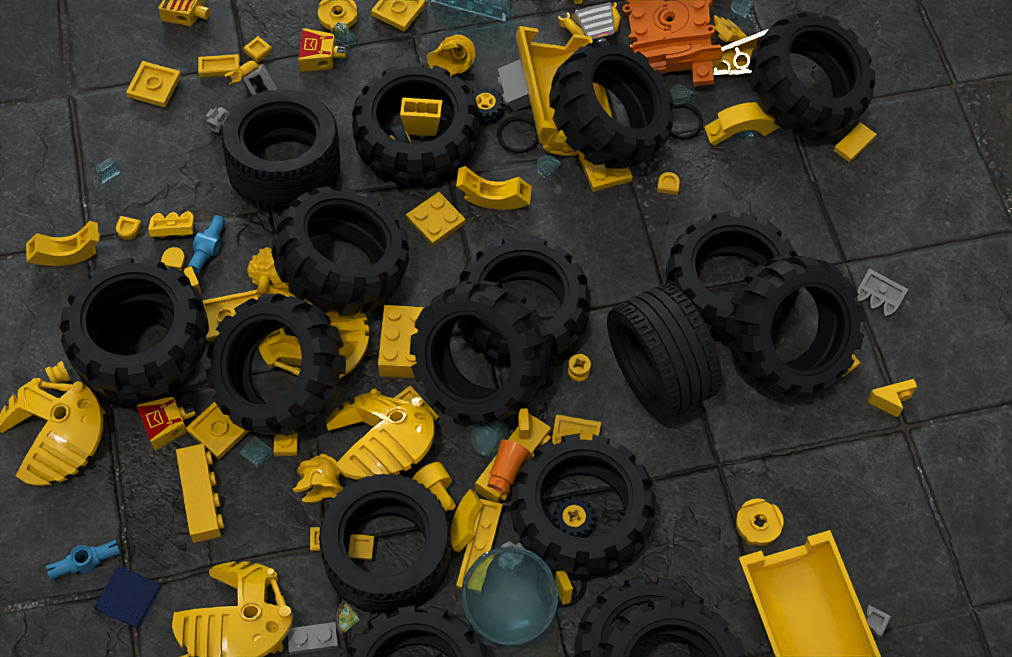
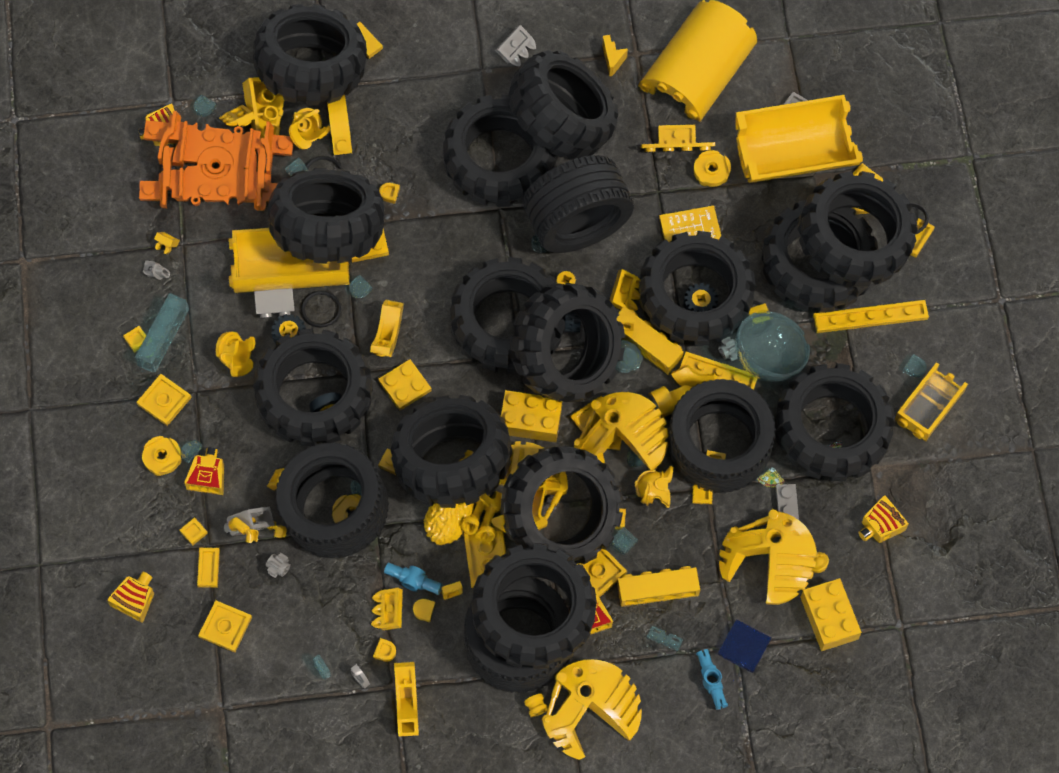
camera: 85 degrees left, 5 degrees up
(98, 206) = (359, 676): none -> light grey tile
(140, 504) = (668, 642): none -> clear light blue piece
(421, 116) = (307, 382): yellow torso -> none
(506, 465) = (662, 338): orange plant -> none
(595, 21) = (212, 229): torso -> none
(676, 504) = (692, 221): none -> yellow tile
(722, 89) = (309, 130): none -> yellow helmet
(793, 478) = (676, 136): none -> yellow bracket
(909, 499) = (701, 57): none -> yellow cylinder

